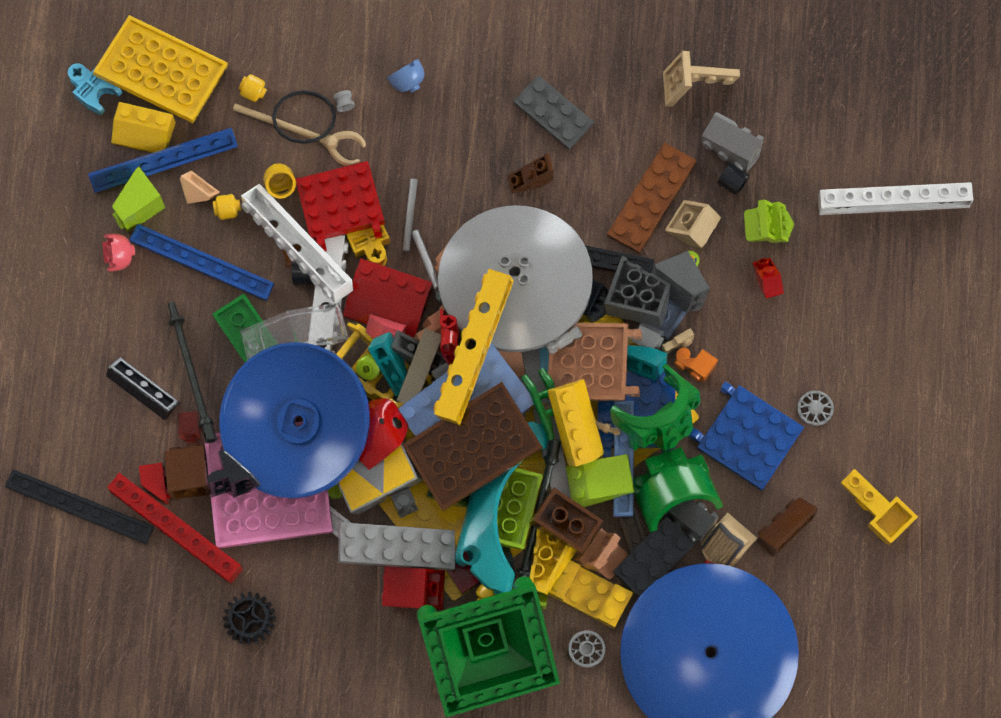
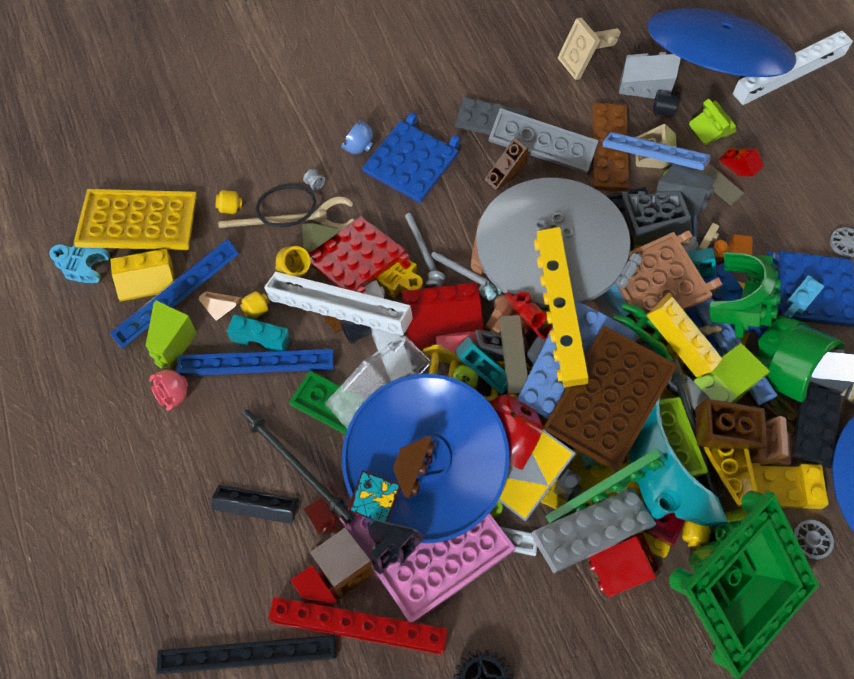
camera: 30 degrees left, 10 degrees down
(215, 235) = (272, 337): none -> teal arch
(237, 432) = (374, 497): none -> tile
(277, 422) = (412, 464): none -> reddish brown slope
(316, 162) = (315, 235): none -> olive slope
(399, 261) = (436, 279): none -> light grey wheel
(432, 518) = (615, 483): none -> green plate
(449, 121) = (411, 159): none -> blue plate
(584, 163) = (544, 140): none -> light grey plate
(678, 230) = (657, 151): none -> medium blue tile
(725, 440) = (803, 296): none -> medium azure plate
(729, 279) = (723, 187): none -> dark tan tile
(825, 140) = (722, 42): none -> blue dish

